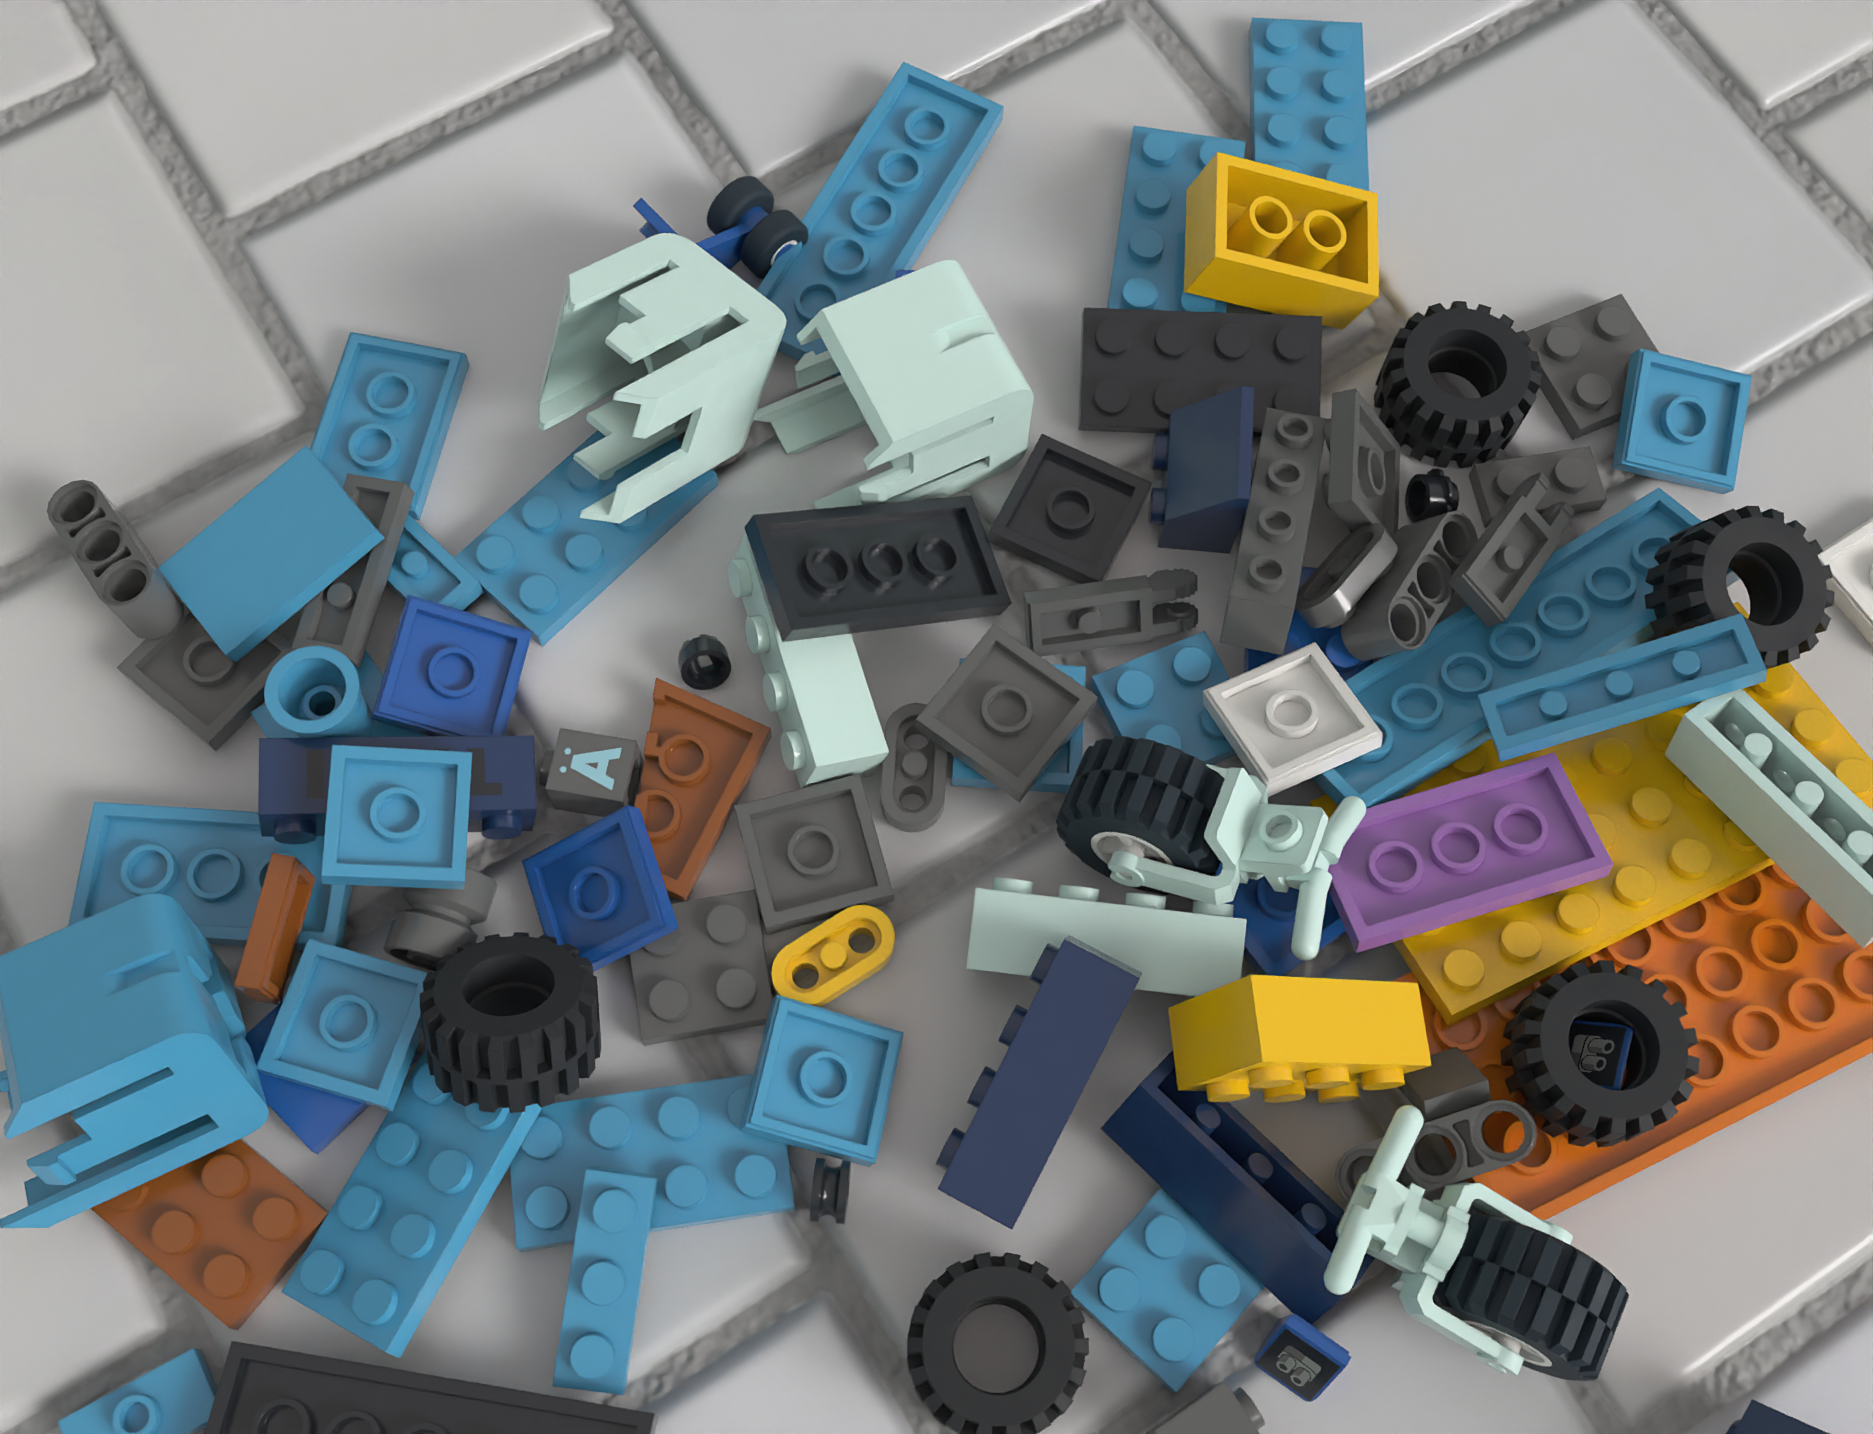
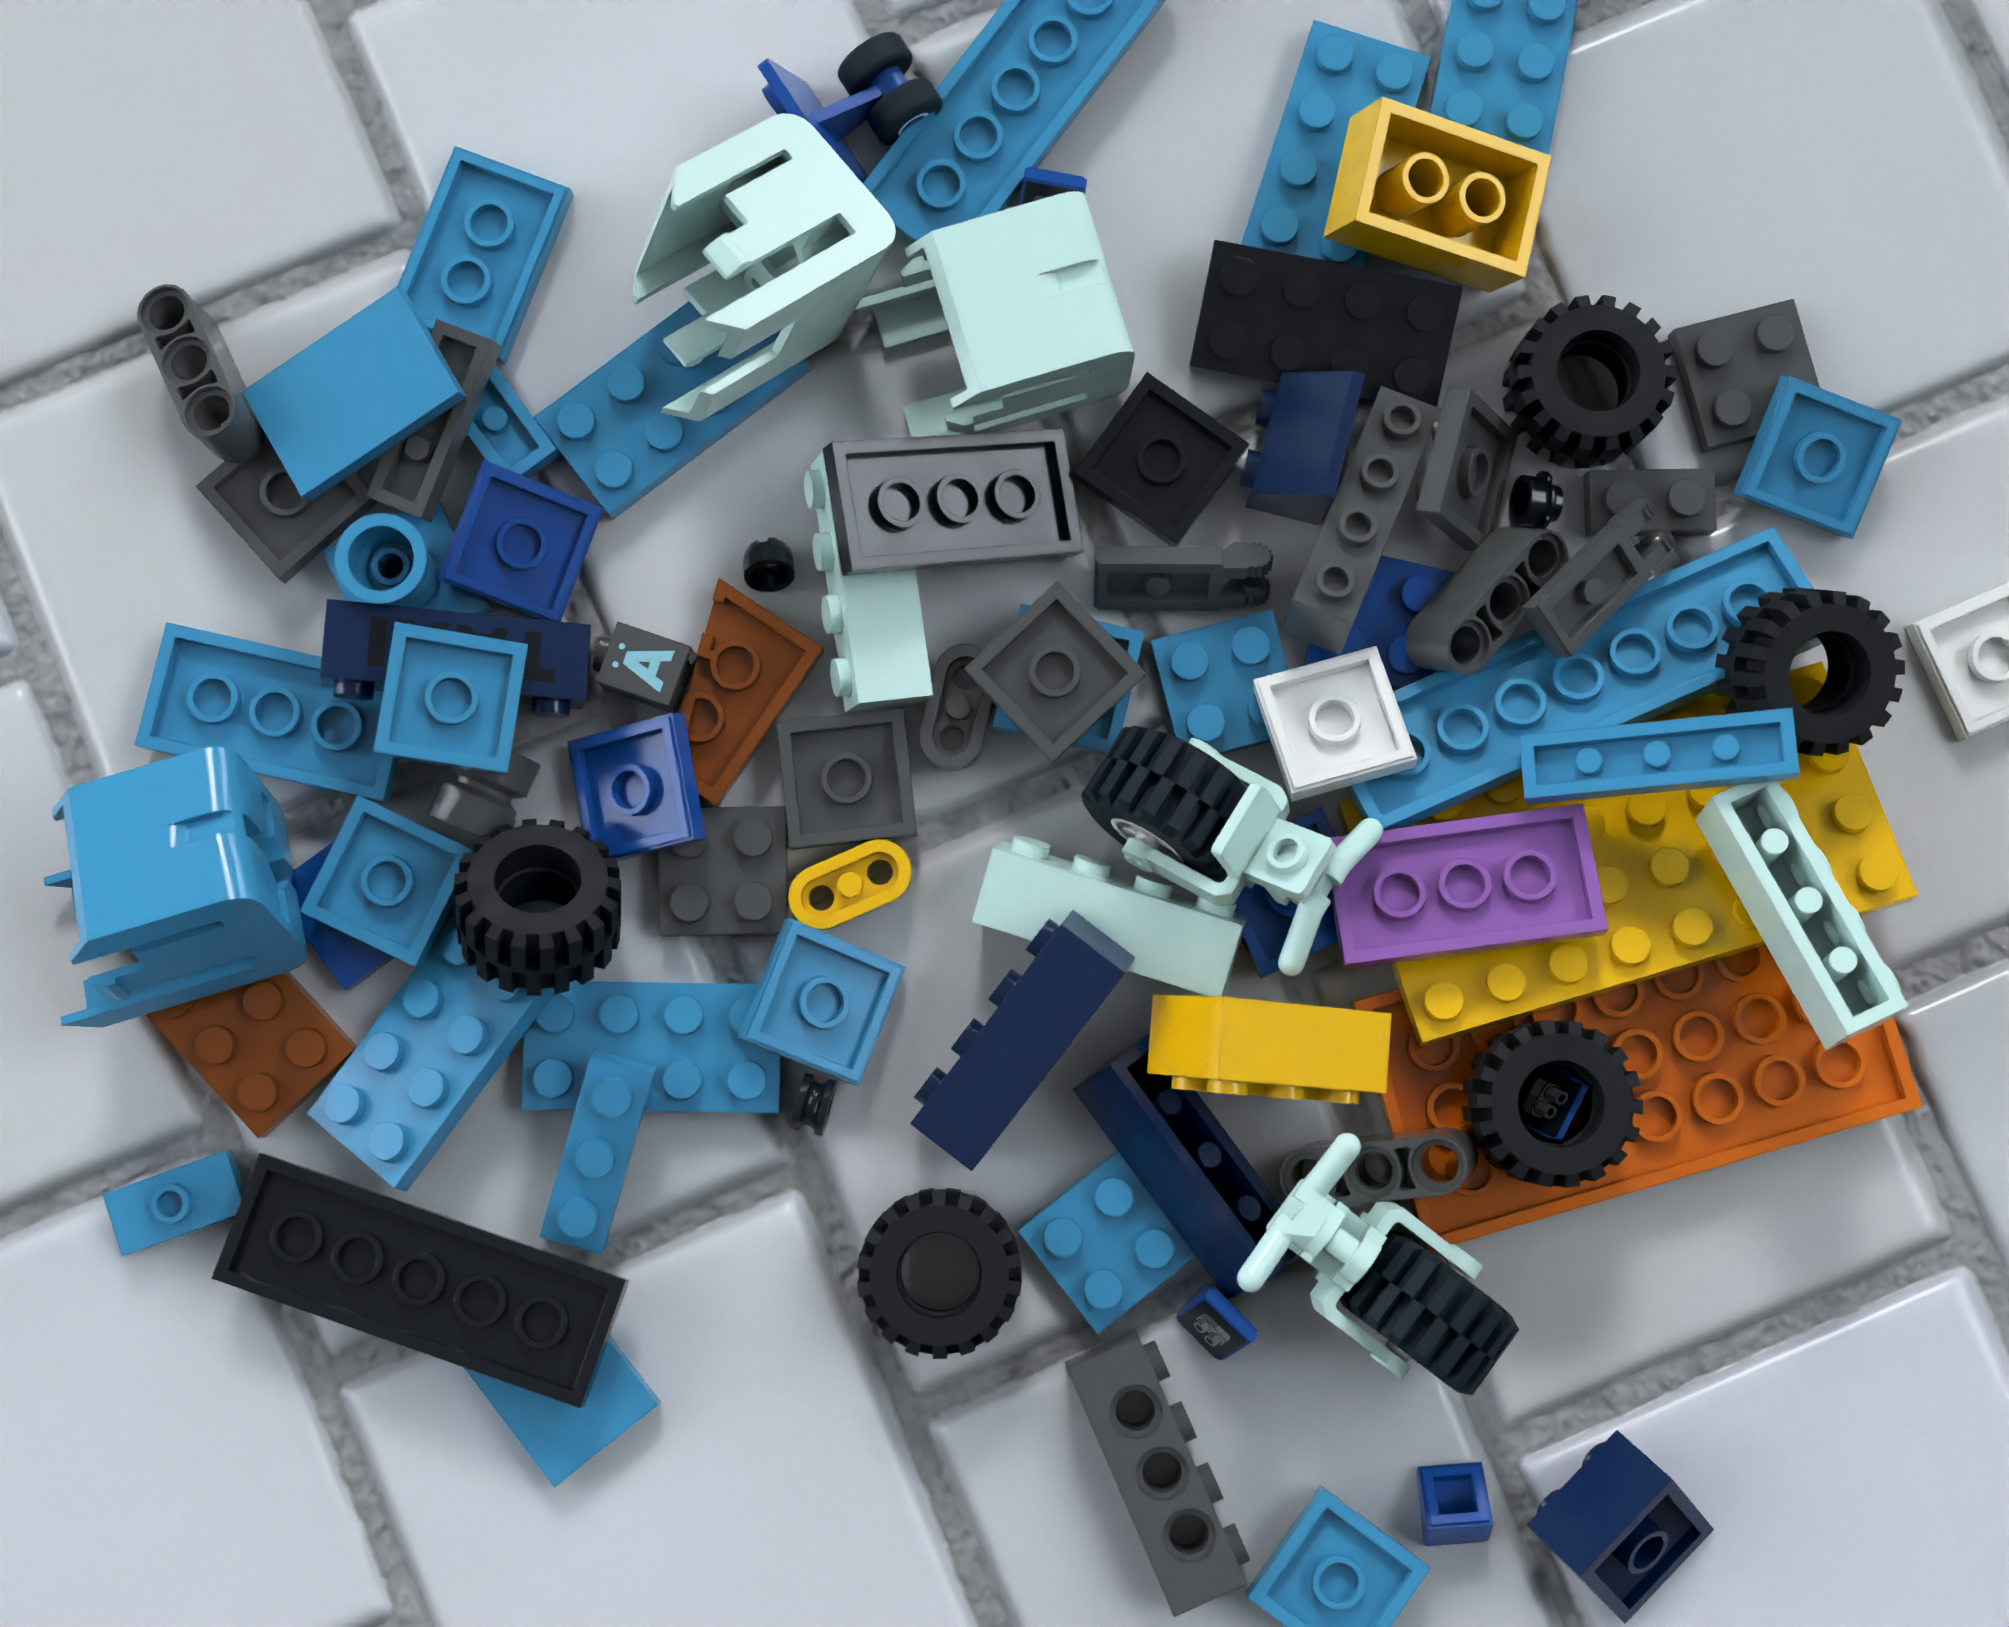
camera: 10 degrees right, 15 degrees up
(275, 929) = (328, 782): dark orange tile -> none
(1345, 575) = (1421, 582): dark grey plate -> none
(1446, 1086) = (1403, 1108): dark grey tile -> none

